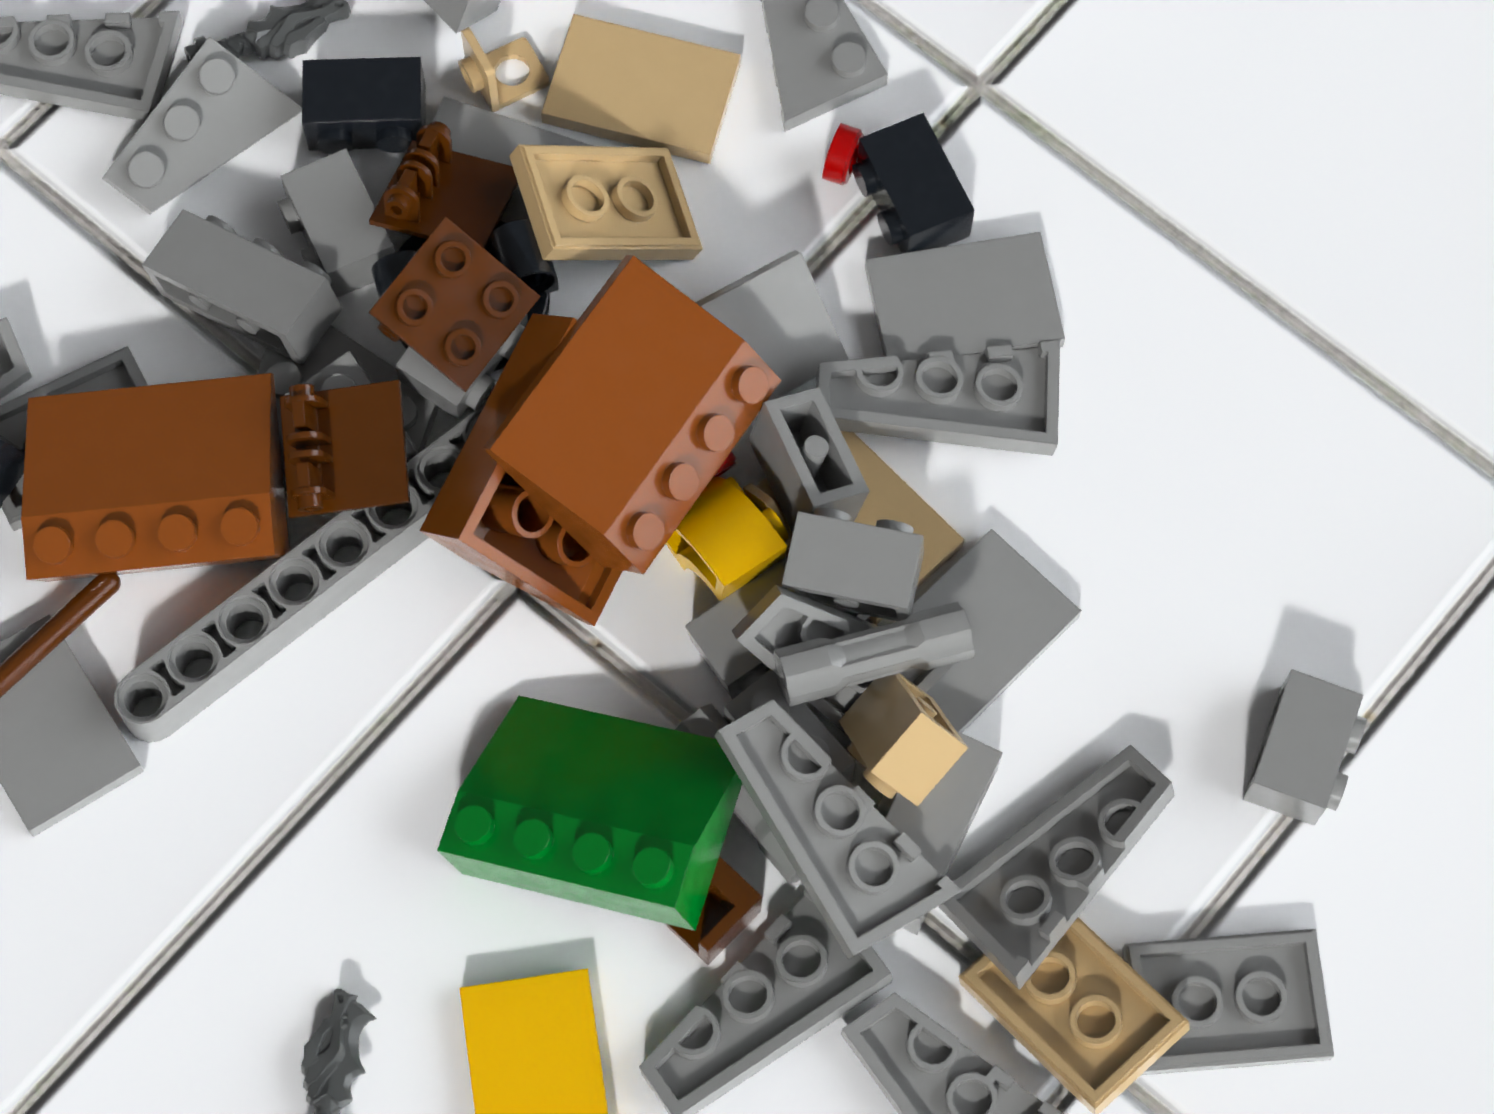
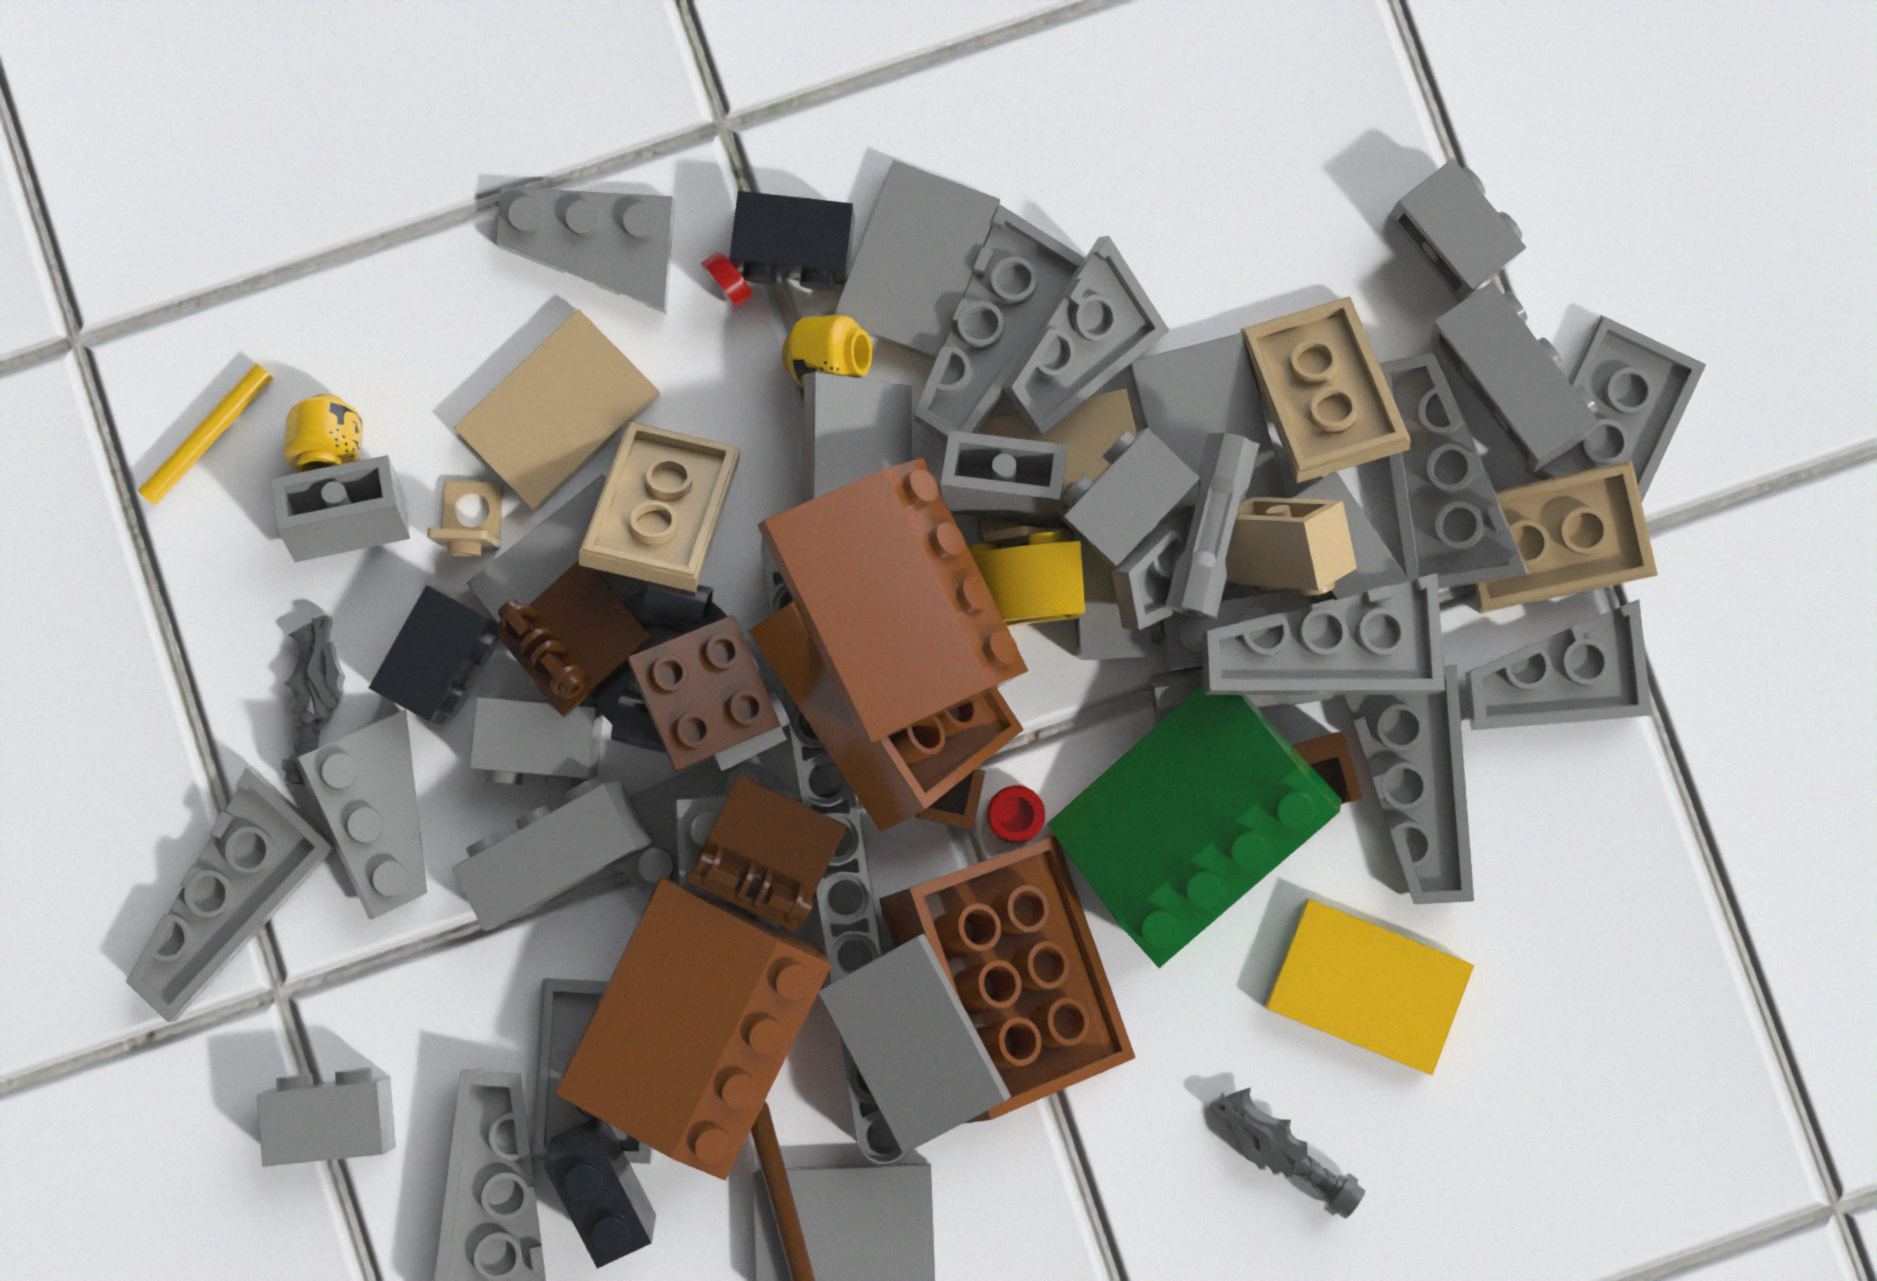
camera: 55 degrees left, 15 degrees up
(241, 663) = (914, 1044): none -> light grey tile
(354, 736) = (1020, 967): none -> dark orange slope
(492, 601) = (959, 804): none -> reddish brown panel
(511, 664) = (1015, 814): none -> red tile
(836, 265) = (827, 346): none -> yellow head
(982, 473) = (1085, 340): none -> light grey wing
(1074, 707) = (1324, 389): none -> tan tile
(1200, 873) = (1515, 376): none -> light grey brick

